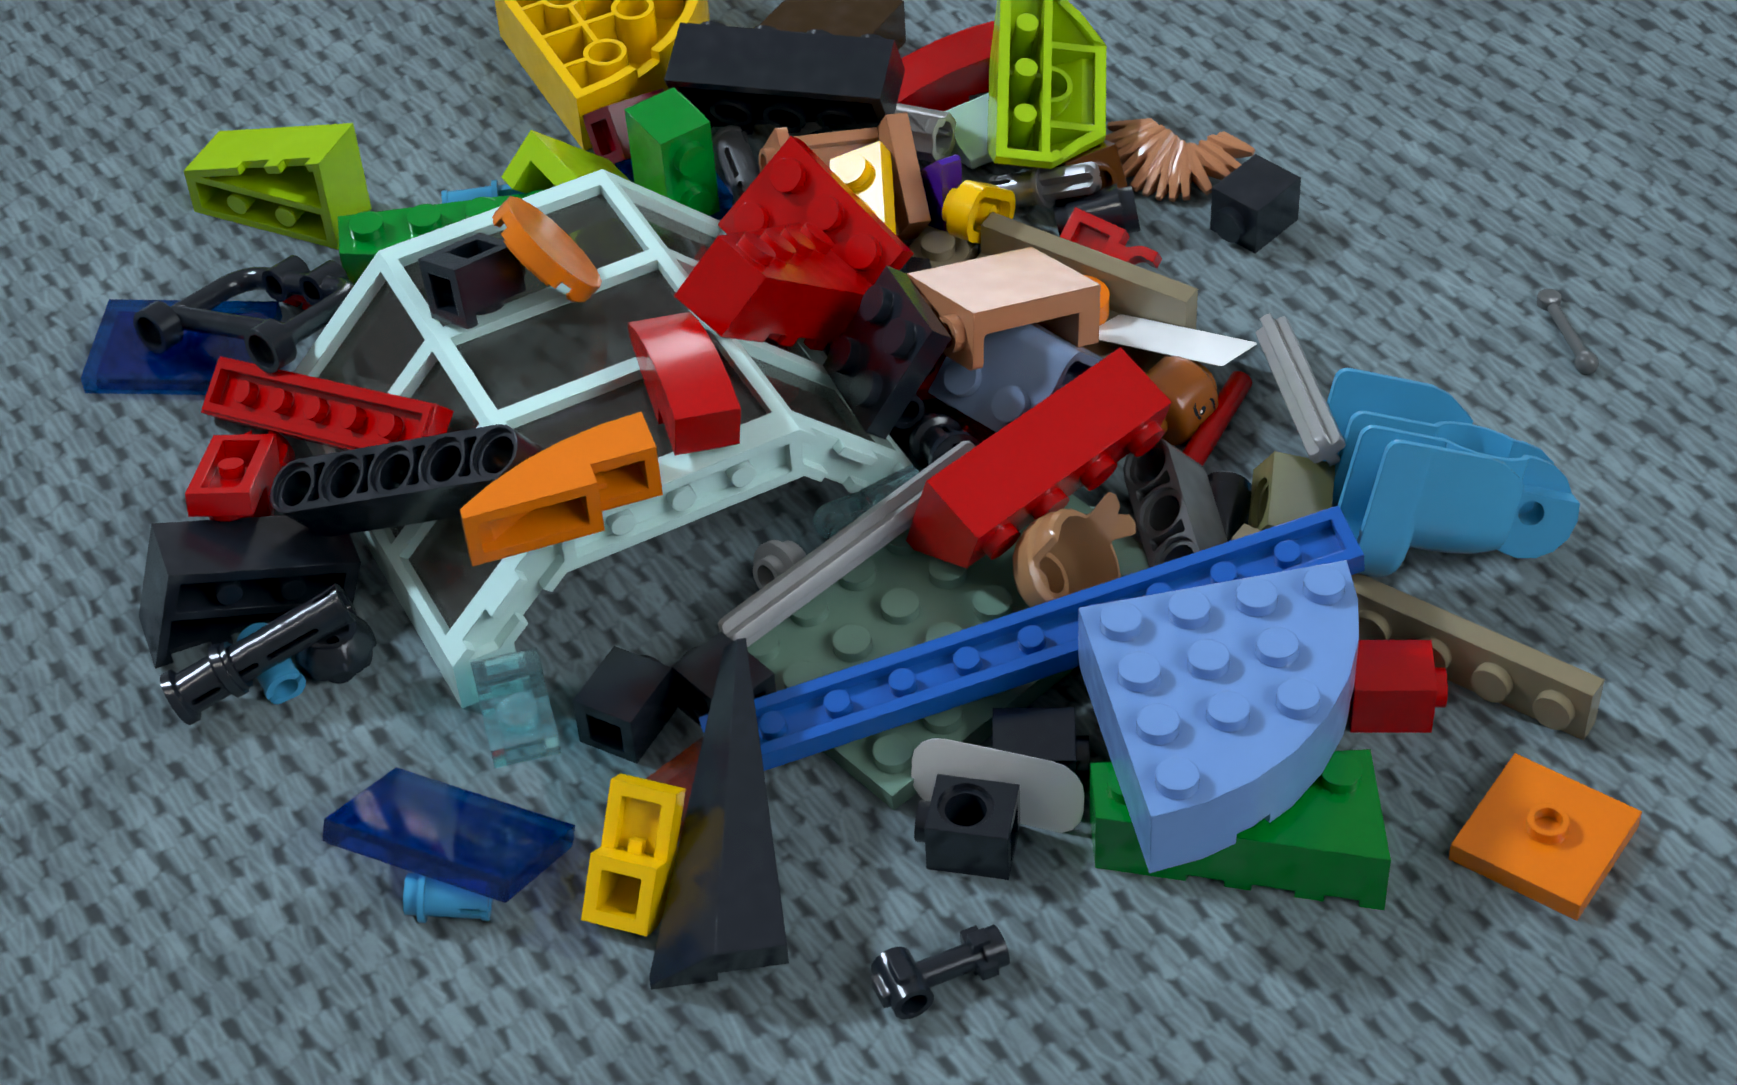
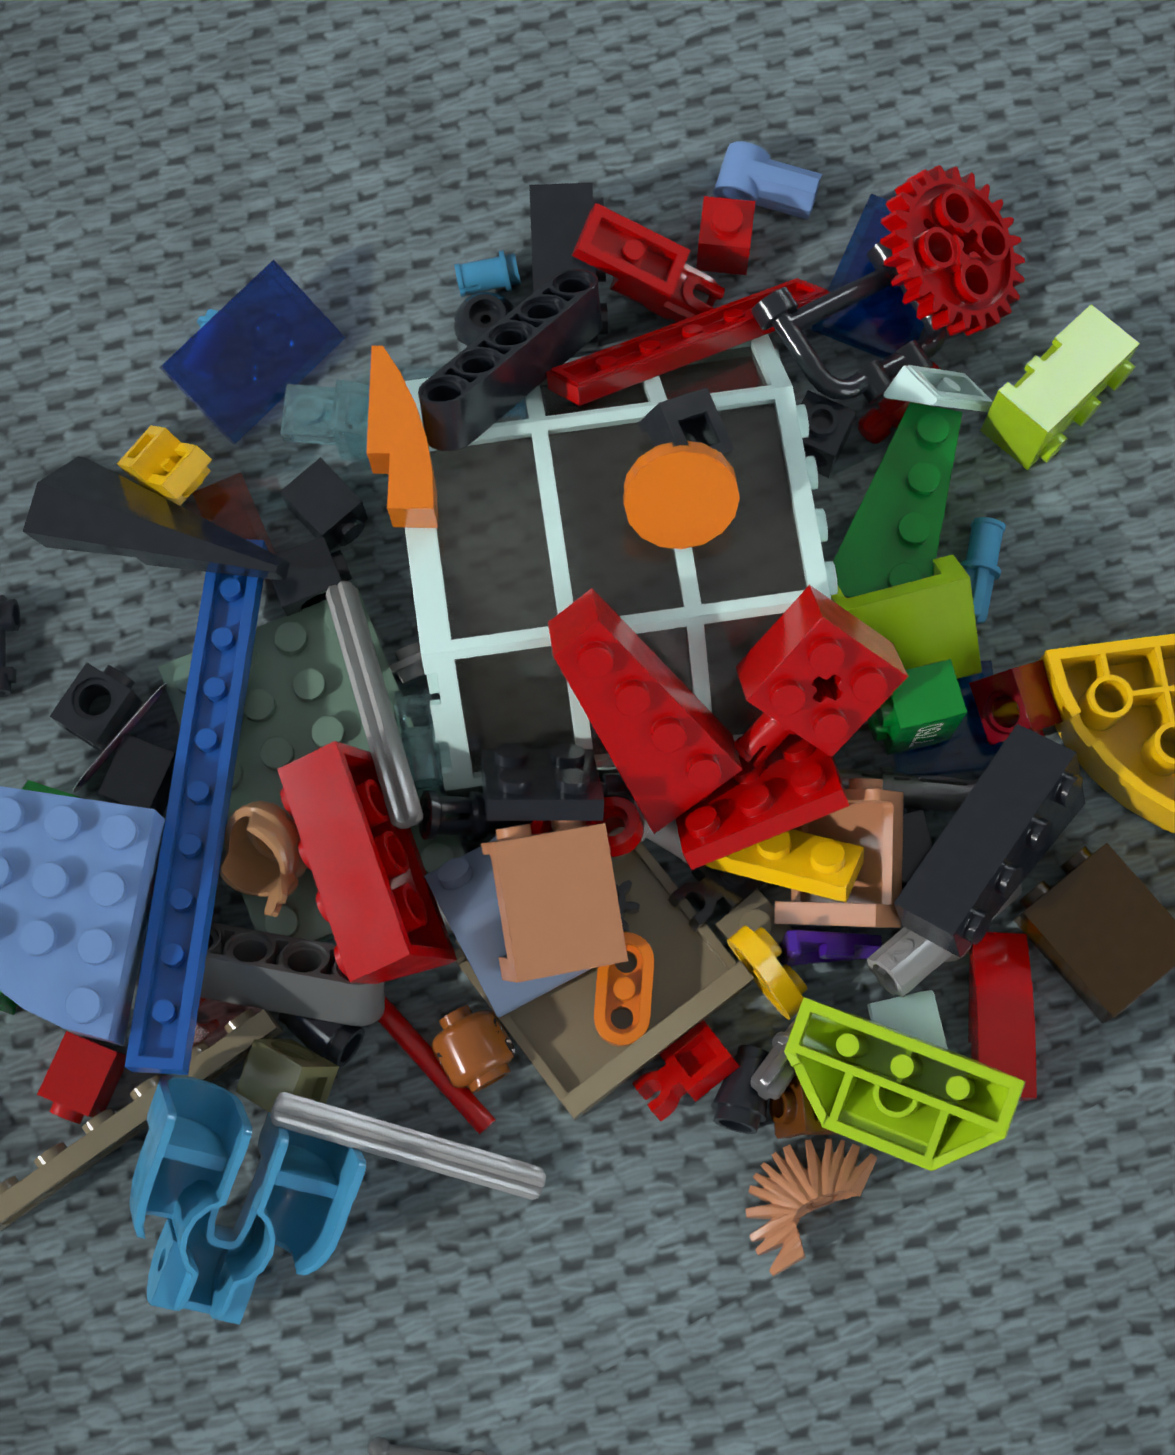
camera: 110 degrees right, 30 degrees up
(87, 465) = (753, 176): none -> medium blue piece
(147, 273) = (952, 250): none -> red gear
(164, 461) = (725, 235): none -> red brick
(231, 667) = (473, 239): black pin -> none
(324, 235) = (937, 388): none -> light aqua slope
(685, 175) = (815, 677): none -> red brick
(686, 382) = (496, 569): red slope -> none
(1173, 340) = (536, 1074): white sticker -> none
(1255, 203) = (695, 1237): black brick -> none

